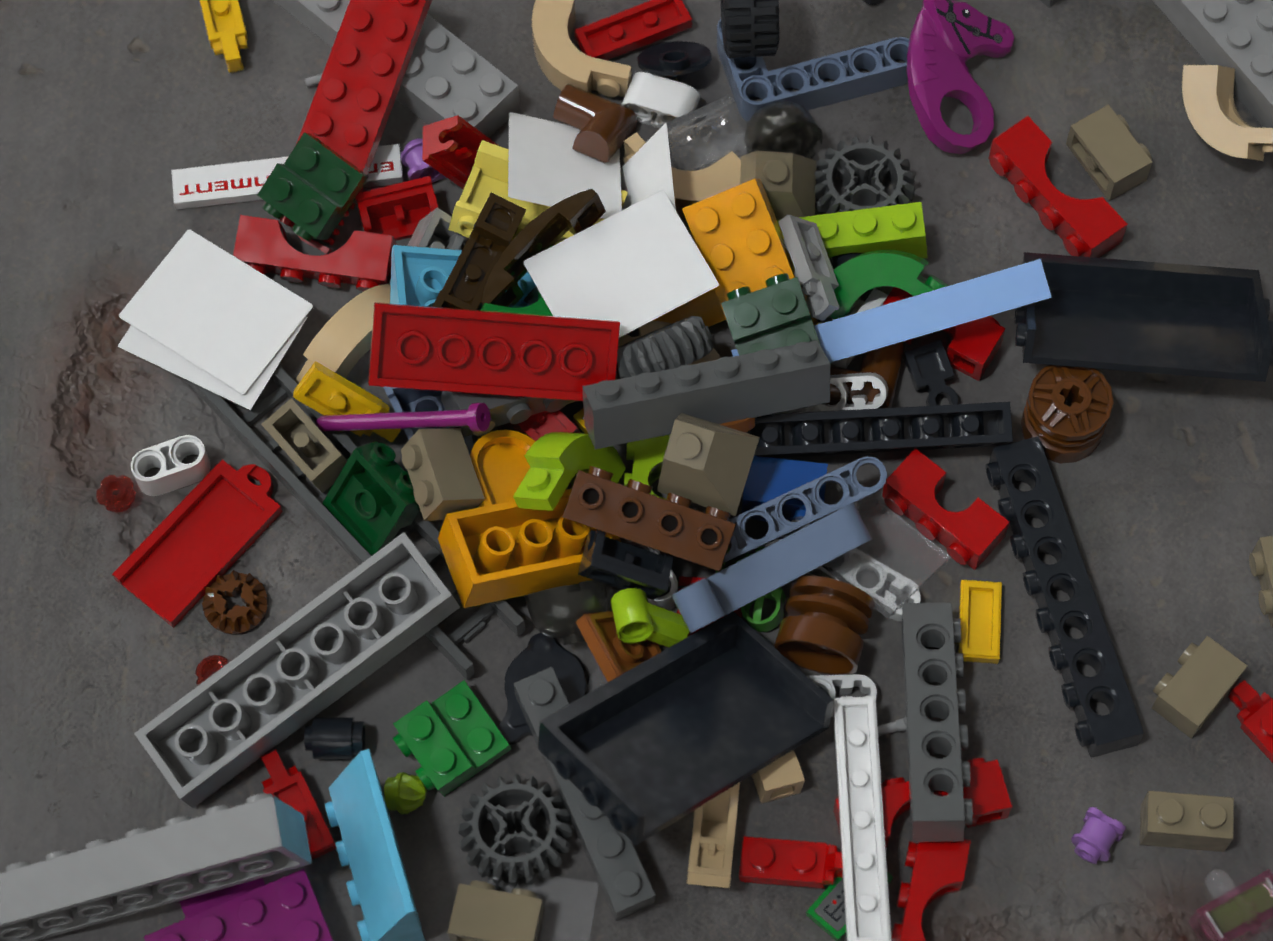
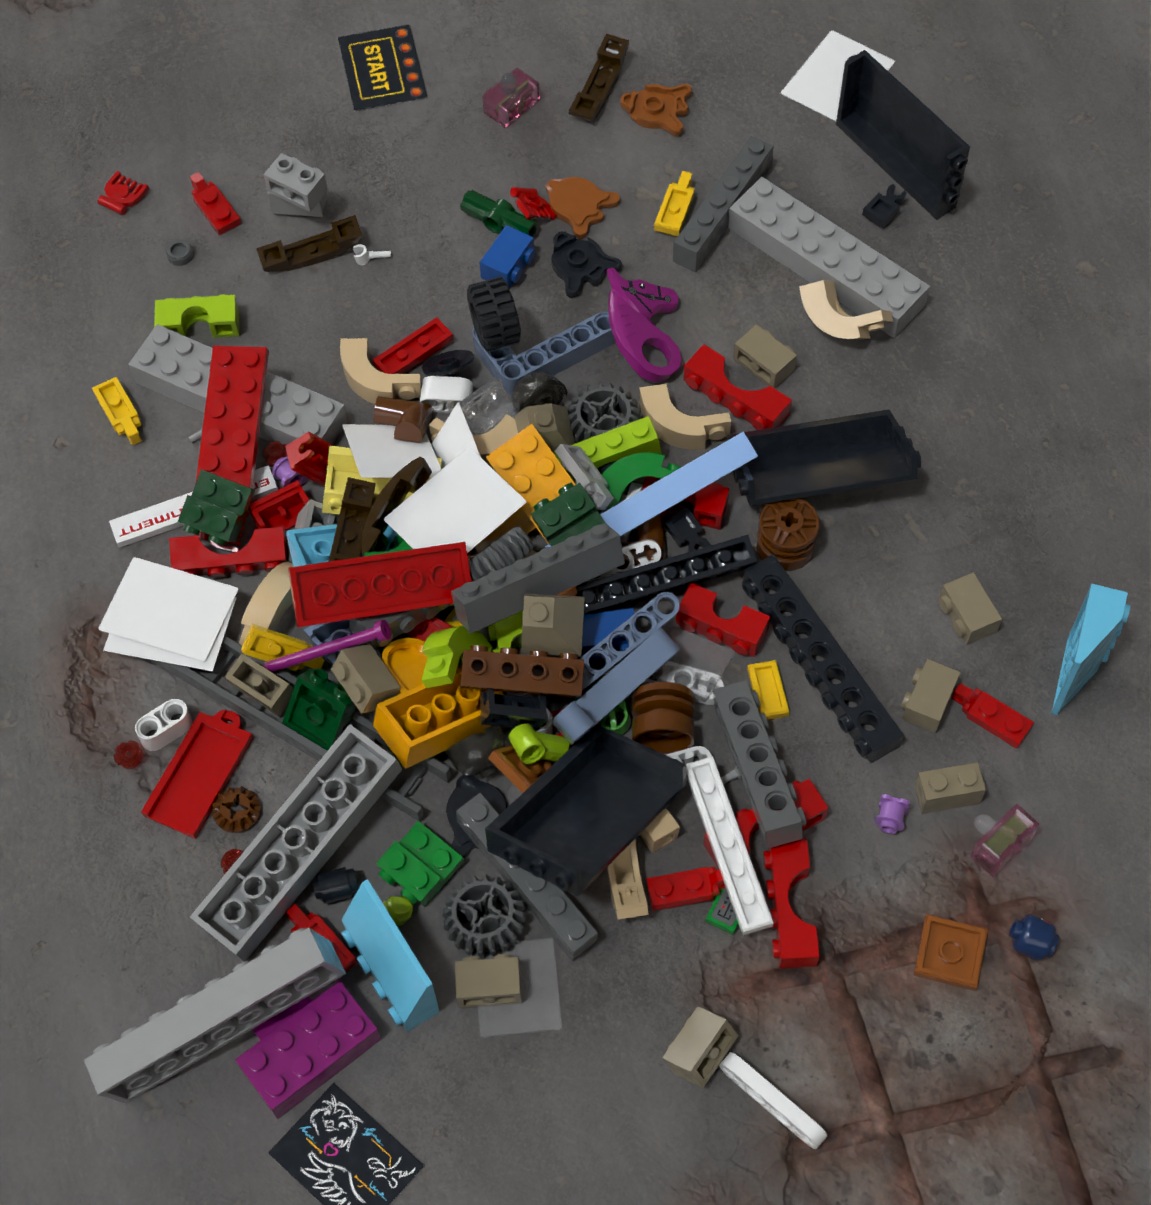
camera: 15 degrees left, 5 degrees down
(404, 124) = (268, 452): none -> clear red plate
(958, 223) = (678, 428): none -> tan arch

